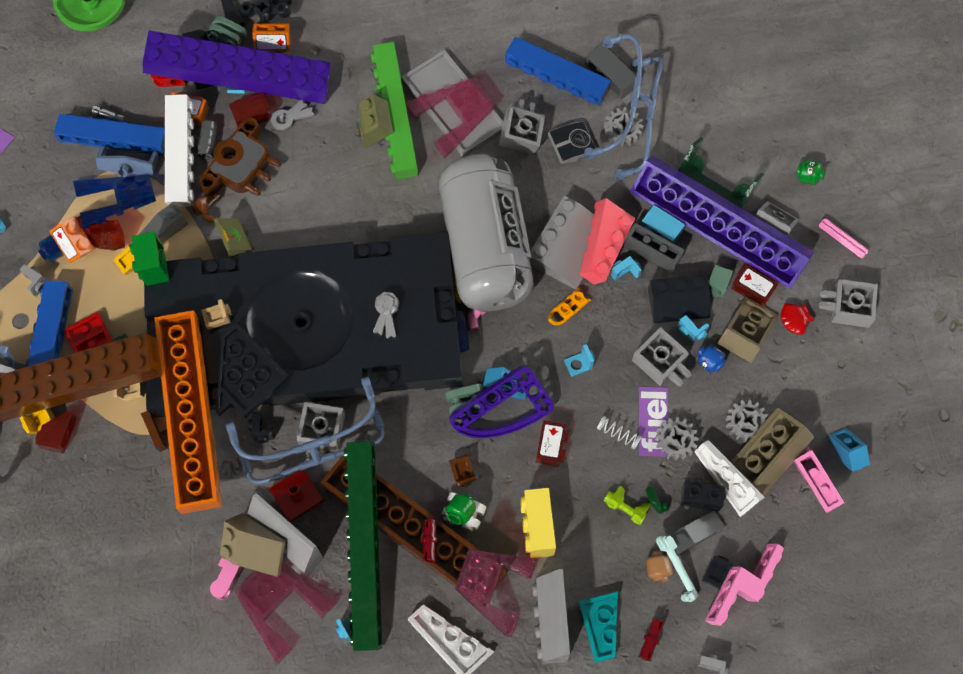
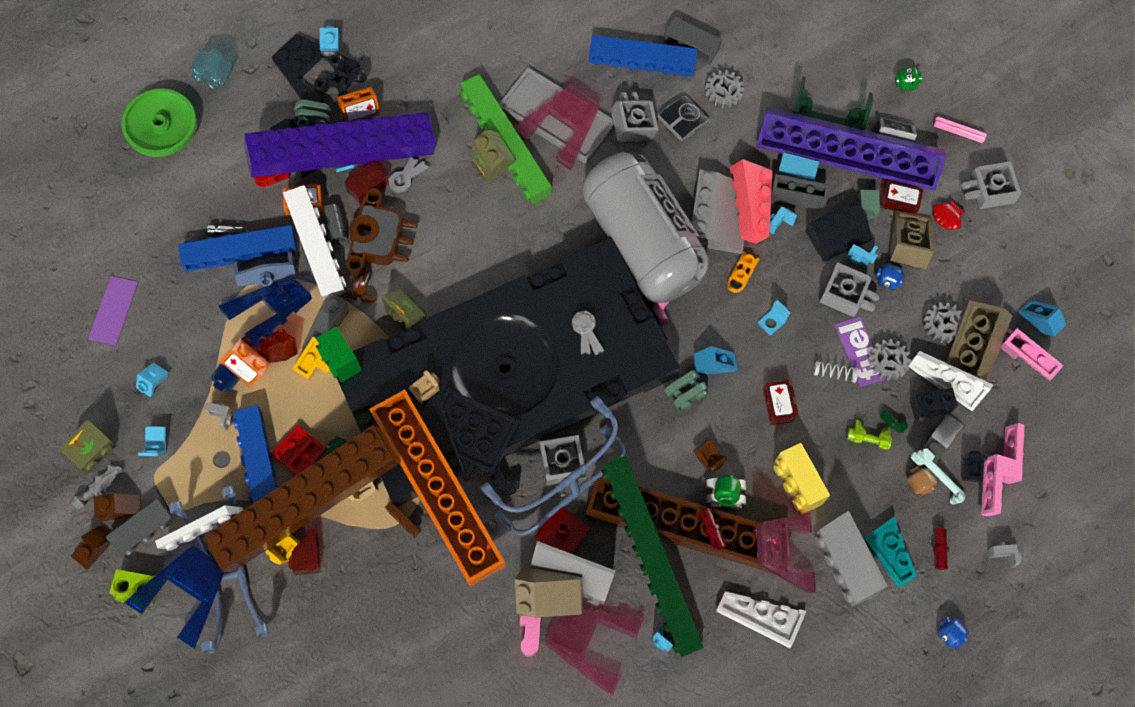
camera: 25 degrees left, 0 degrees up
(501, 396) = (720, 373): dark purple beam -> none
(637, 95) = (737, 56): sand blue bar -> none

